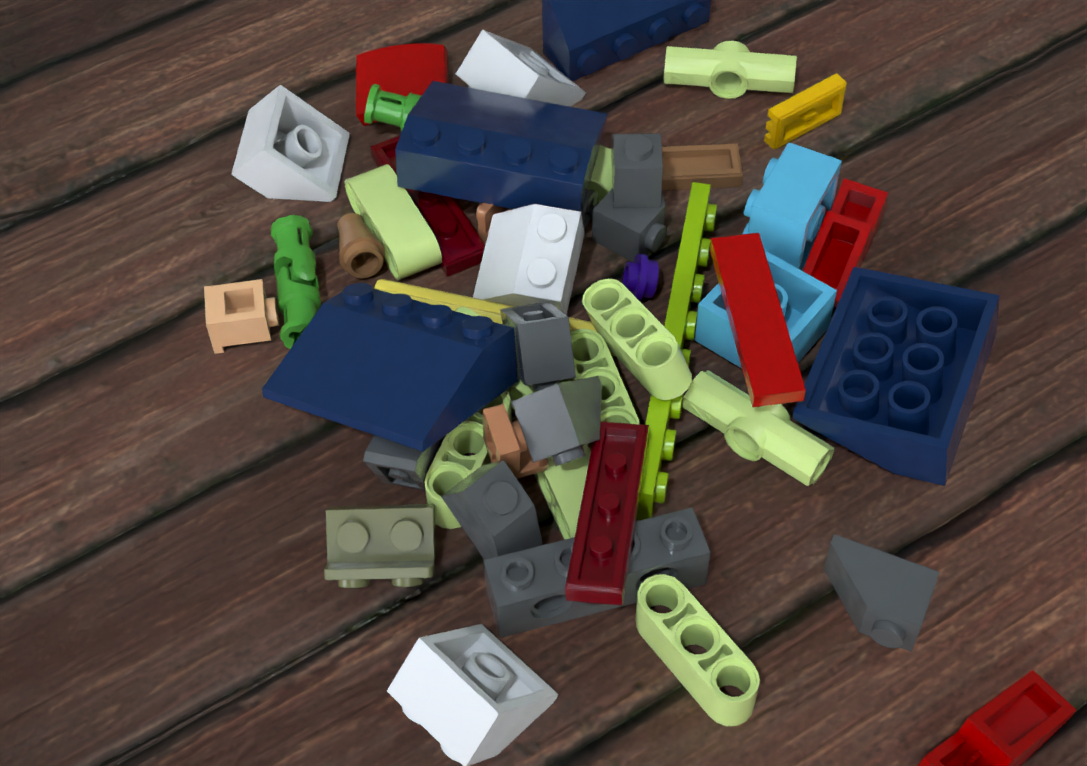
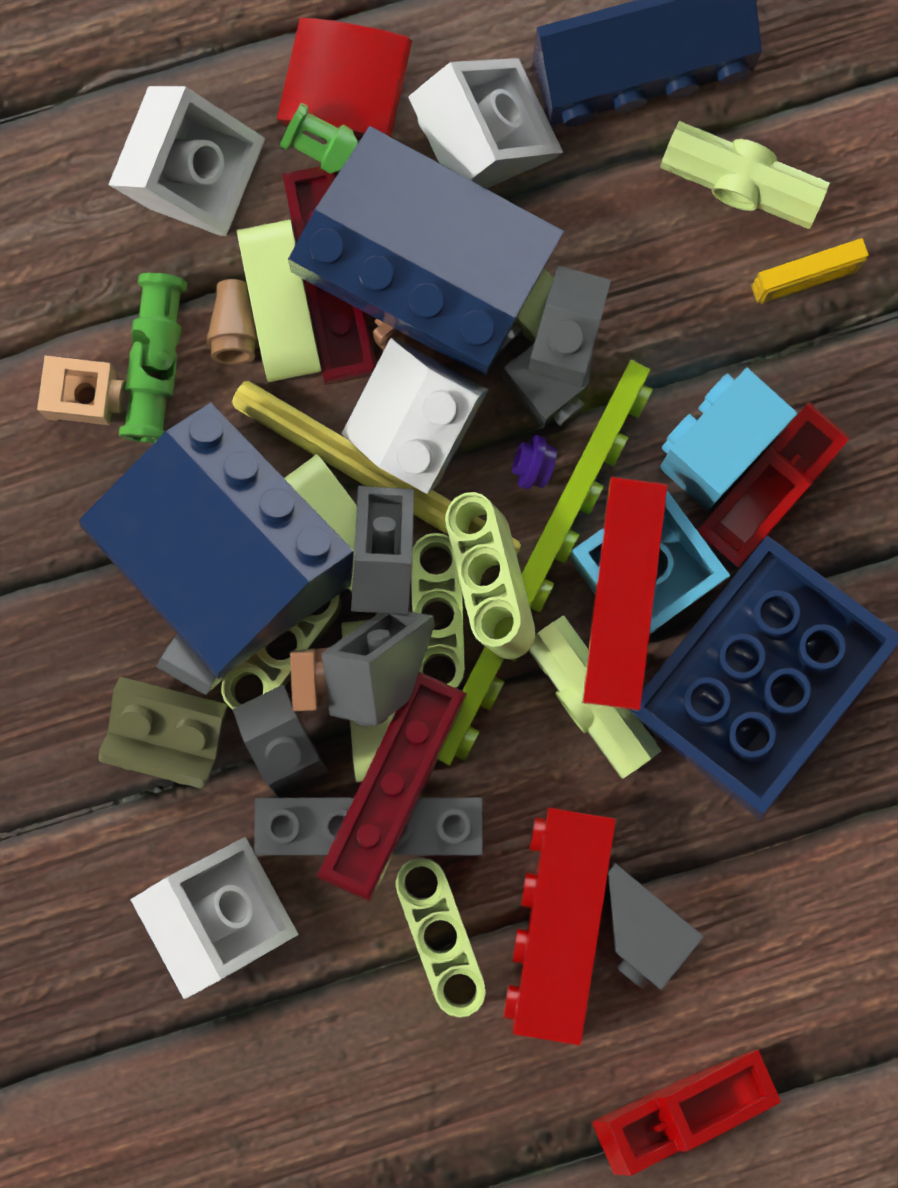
camera: 15 degrees right, 30 degrees up
(701, 164) = (656, 309): medium nougat tile -> none
(806, 614) = (562, 925): none -> red brick

